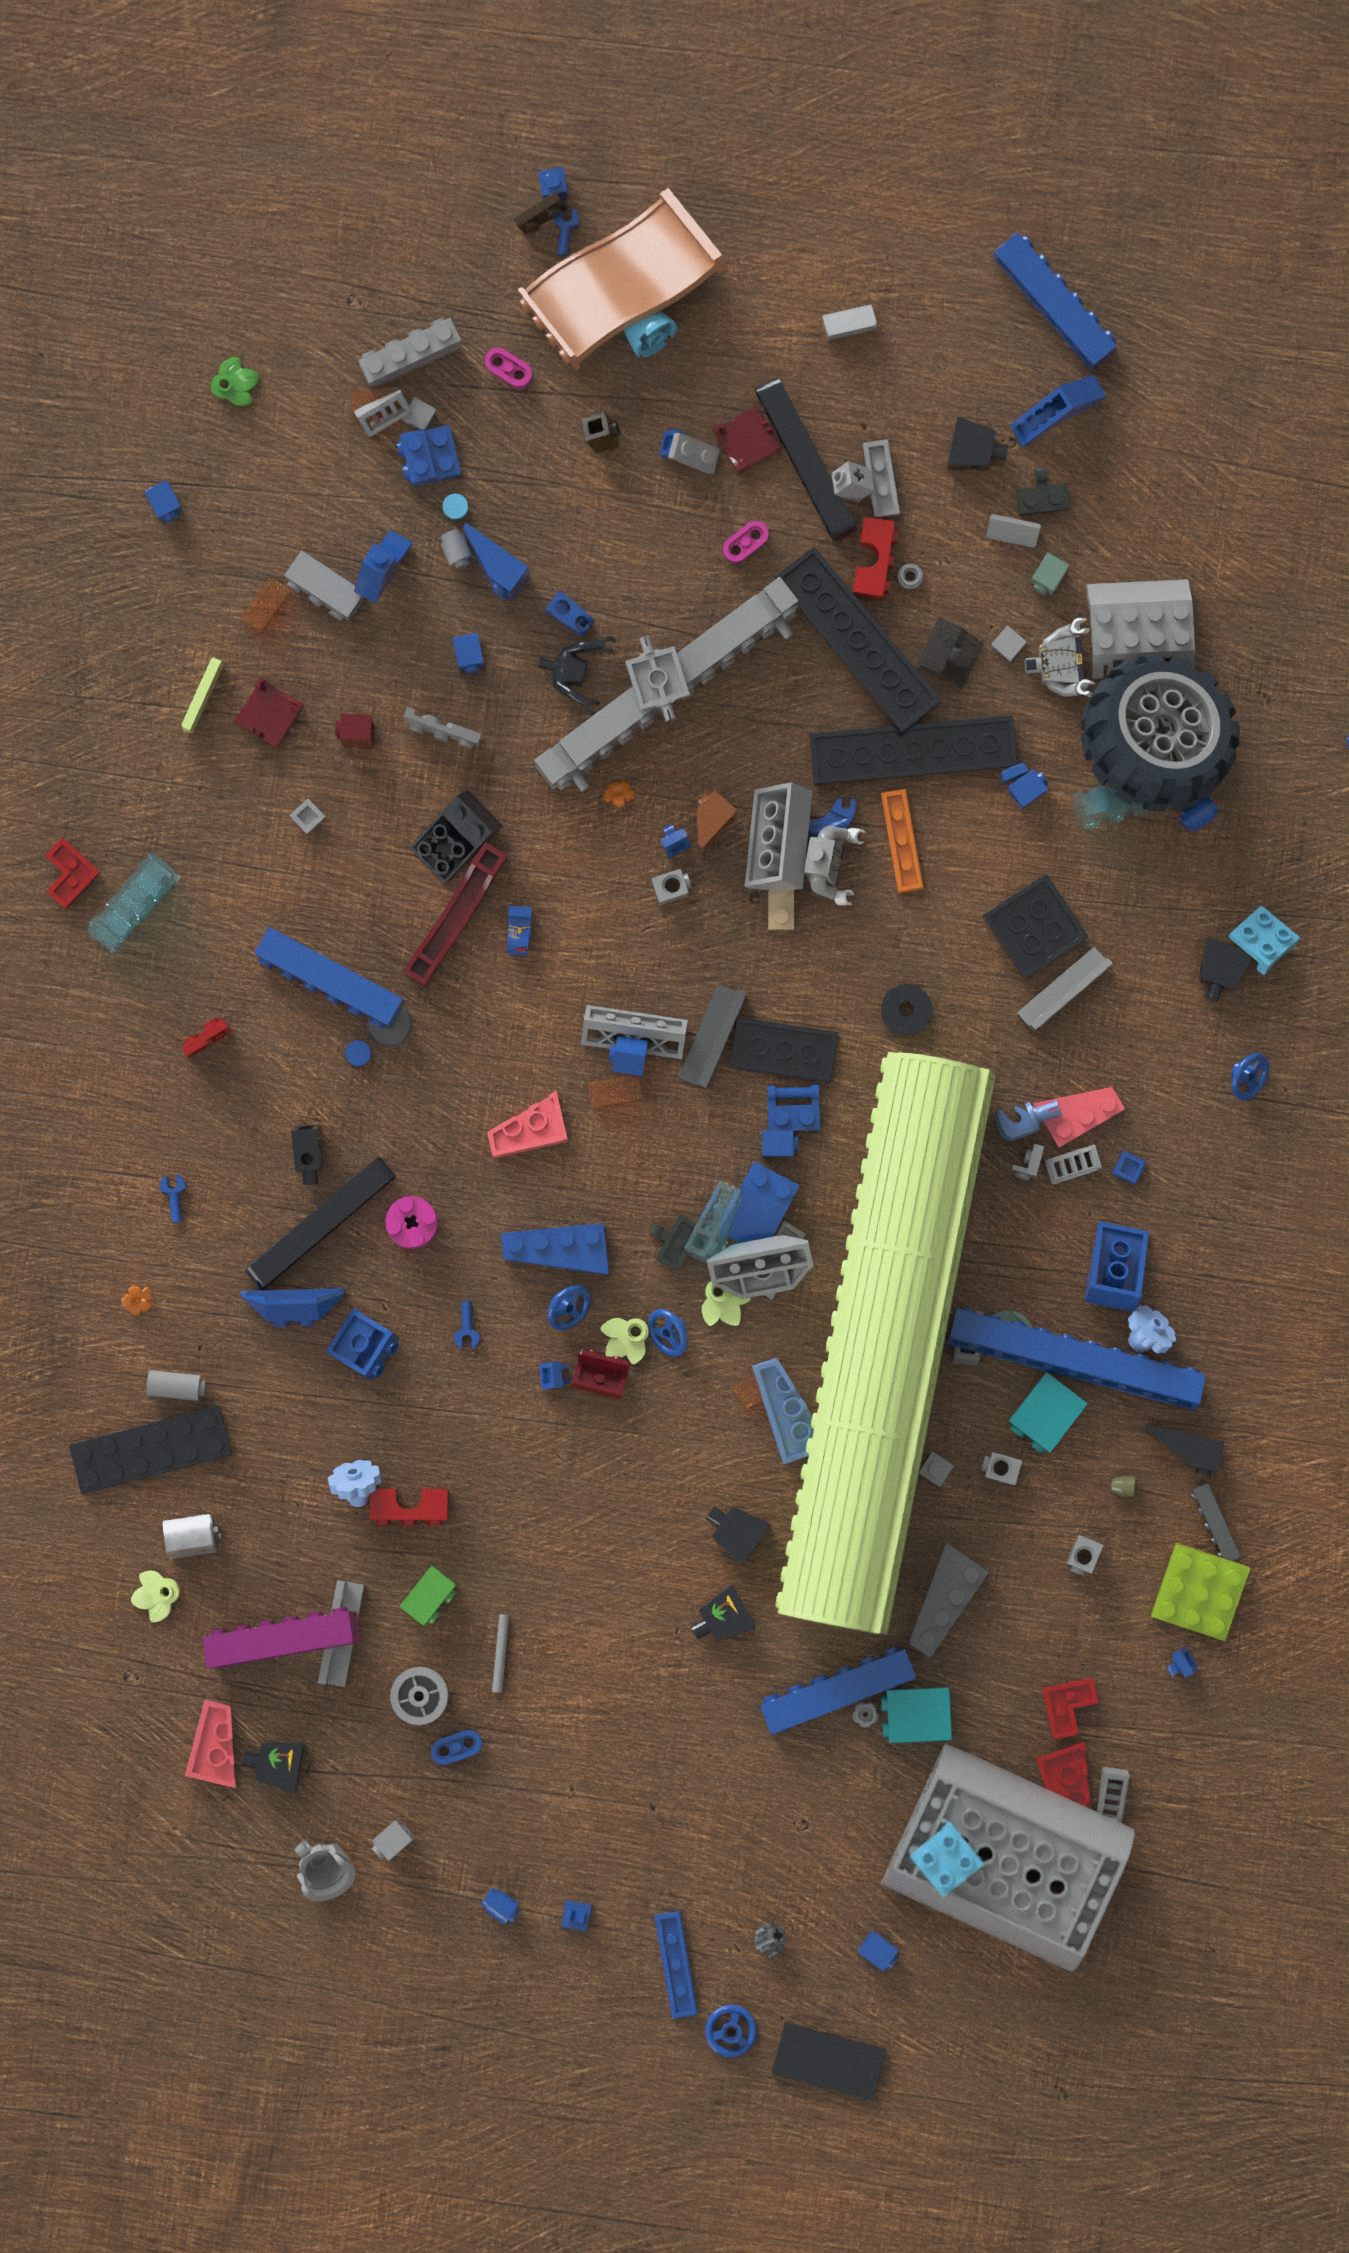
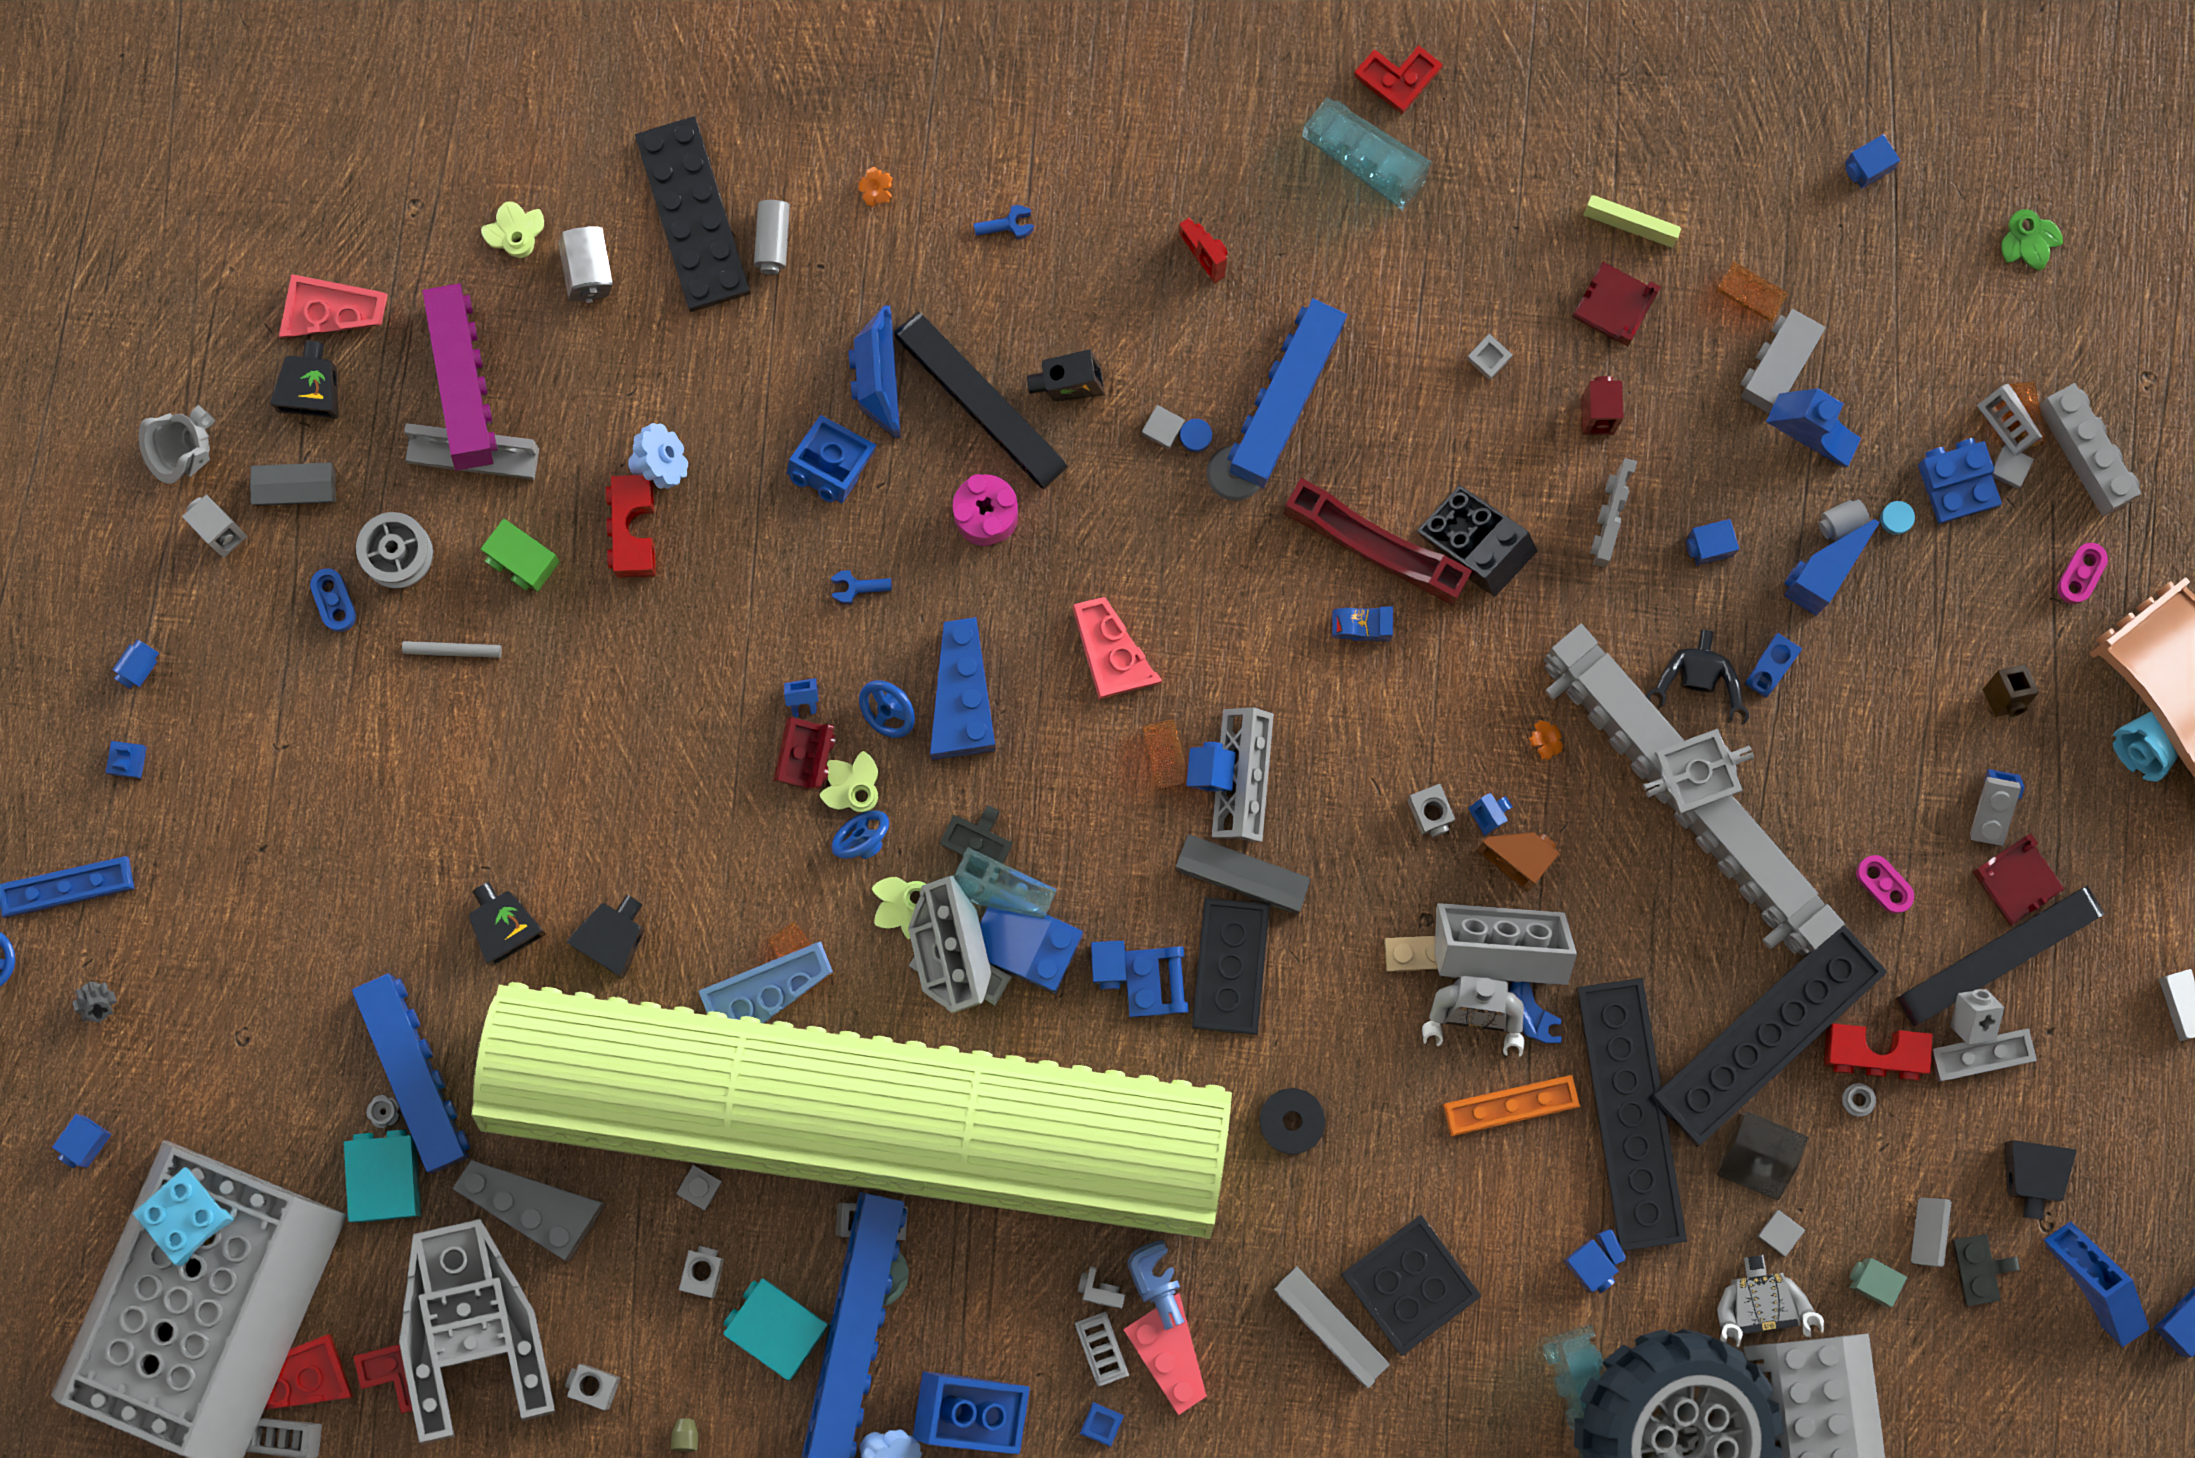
camera: 85 degrees right, 5 degrees down
(349, 1079) = (1163, 427): none -> light grey tile
(359, 1778) = (293, 484): none -> dark grey piece
(1024, 1652) = (462, 1310): none -> light grey wedge

